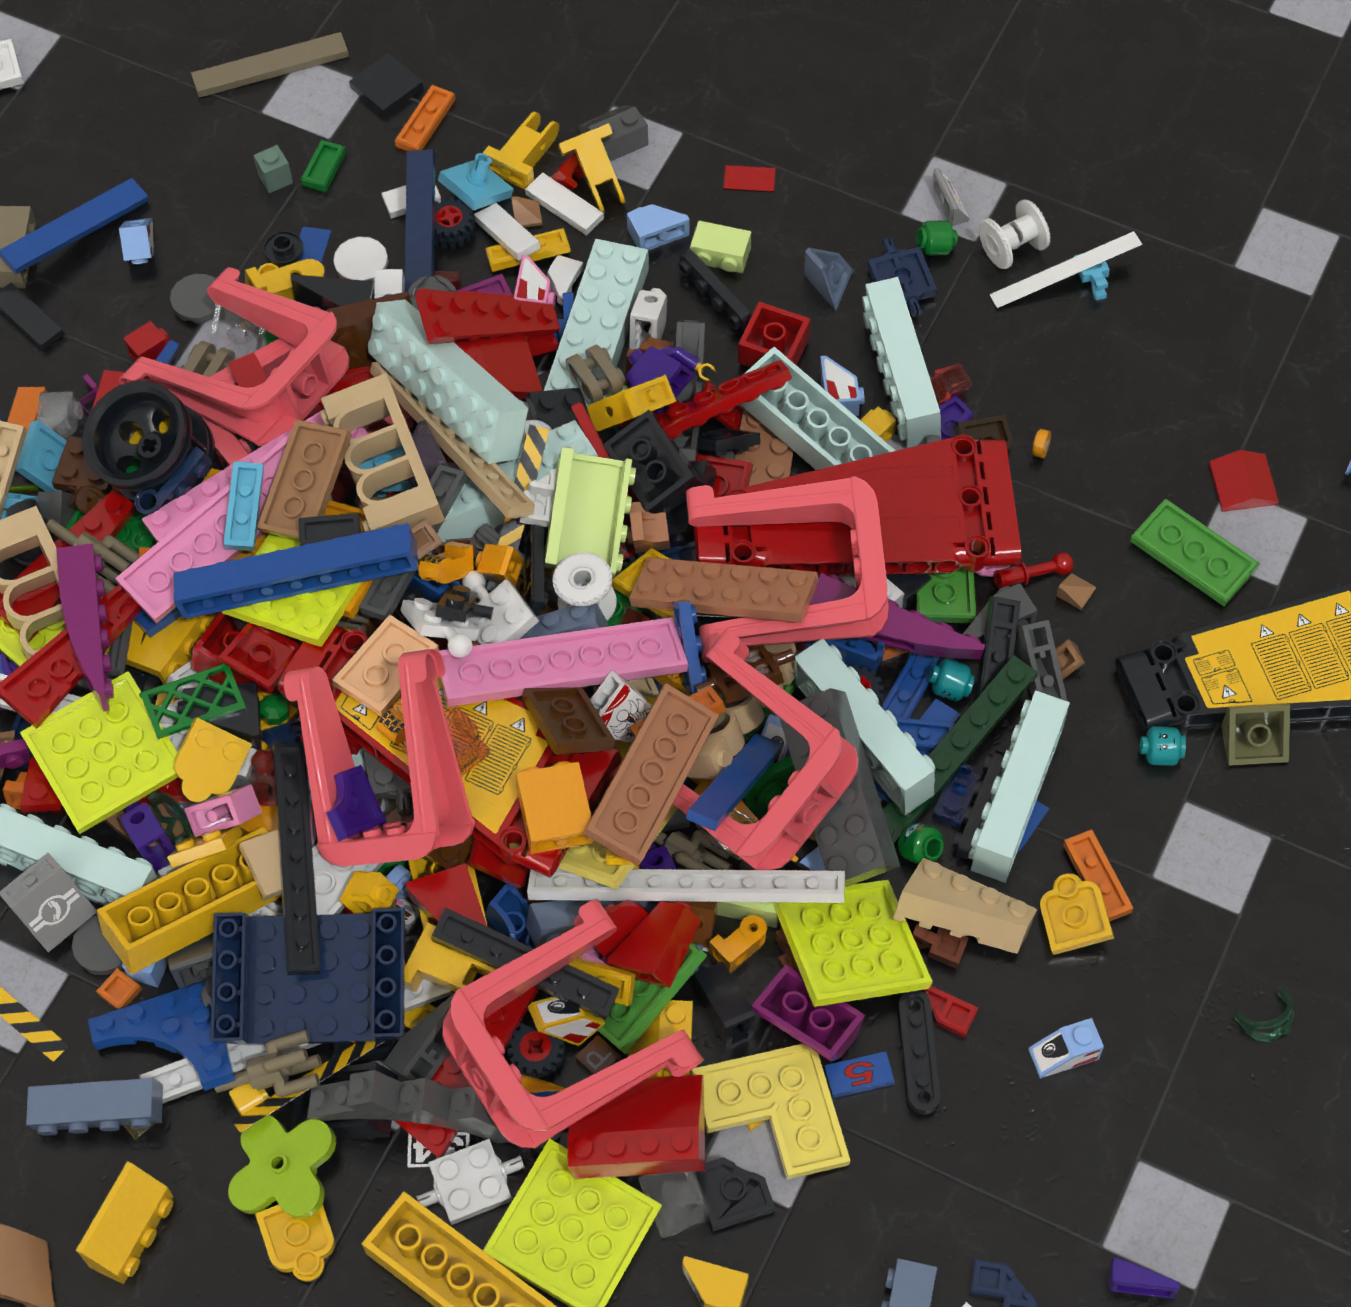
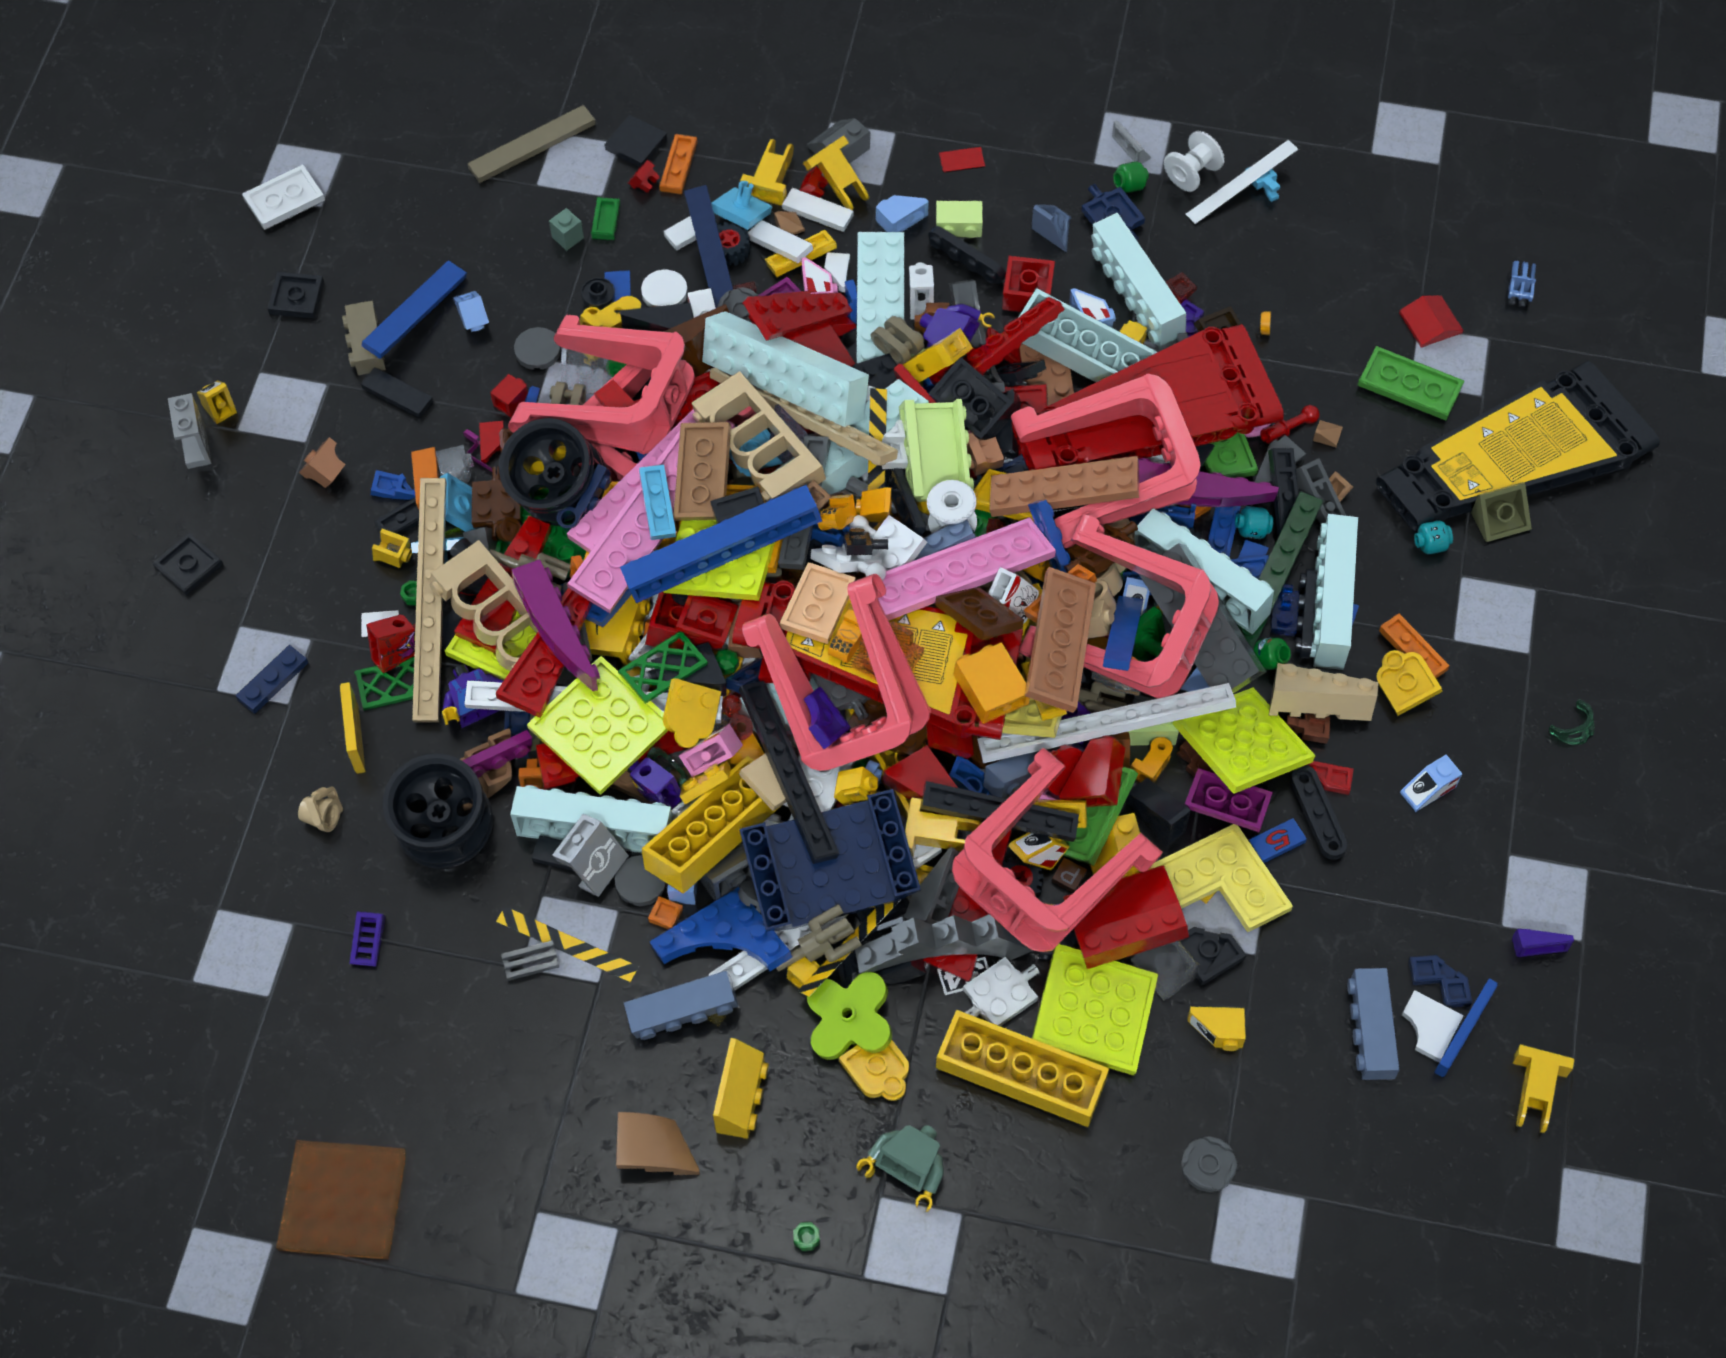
camera: 15 degrees left, 0 degrees up
(376, 125) = (643, 173): none -> red tile

